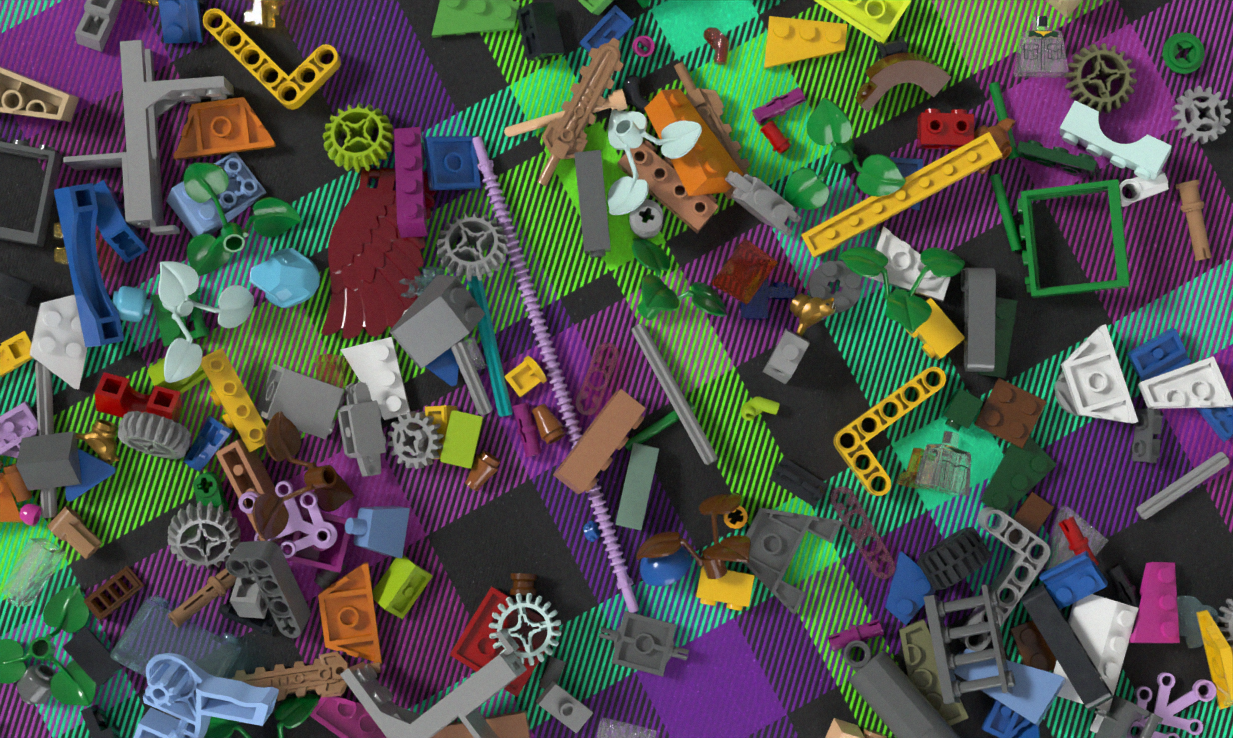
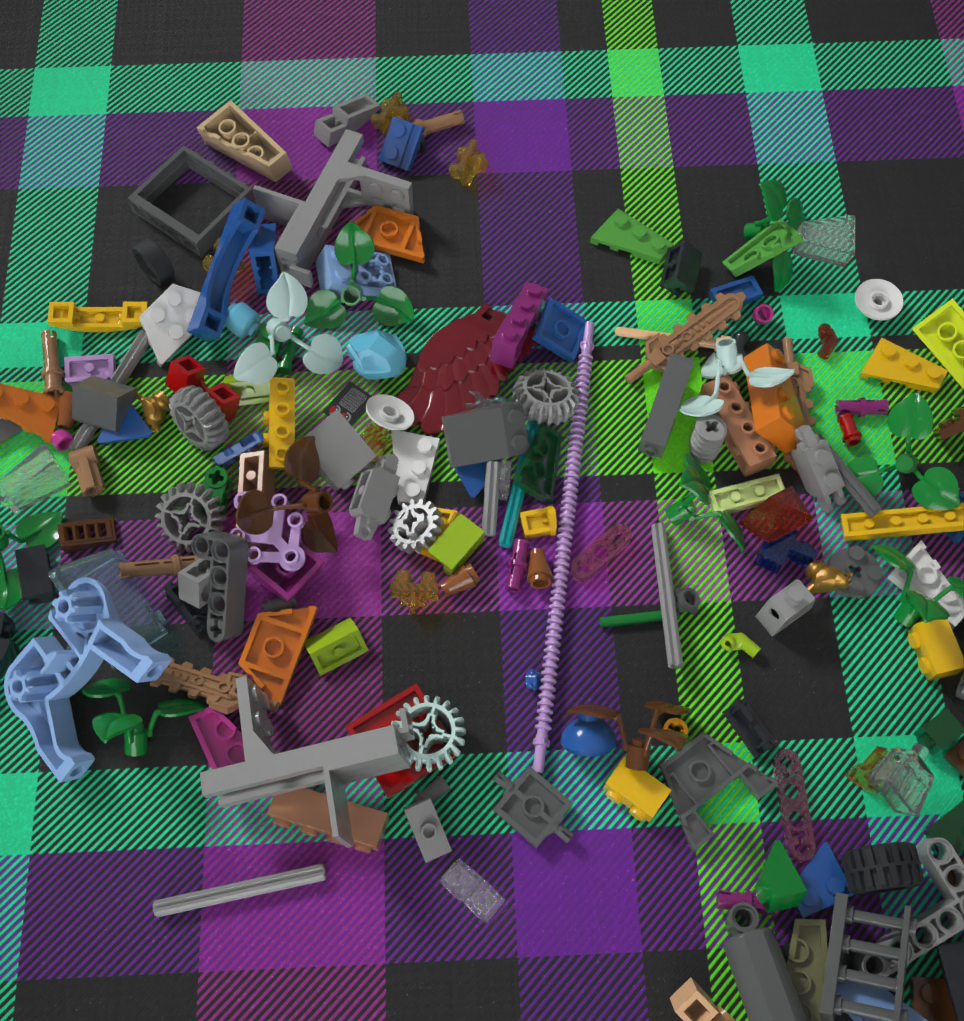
camera: 25 degrees right, 20 degrees down
(266, 65) = (457, 226): yellow beam -> none
(284, 340) = (349, 402): none -> black sticker
(334, 329) = (389, 412): none -> white dish
(358, 124) = (493, 279): lime gear -> none
(380, 529) = (343, 584): medium blue torso -> none
(433, 502) = (414, 594): none -> clear yellow hips
(501, 320) = (540, 465): none -> dark green wing
(523, 584) = (448, 691): reddish brown wheel -> none
(599, 442) = (579, 600): nougat brick -> none
(637, 486) = (594, 658): sand green slope -> none
(700, 387) = (687, 600): none -> dark grey plate
(706, 253) = (745, 494): none -> yellowish green tile
(792, 196) = (855, 487): none -> dark grey axle
(874, 609) = (779, 882): none -> green slope
(881, 422) = (853, 709): yellow beam -> none

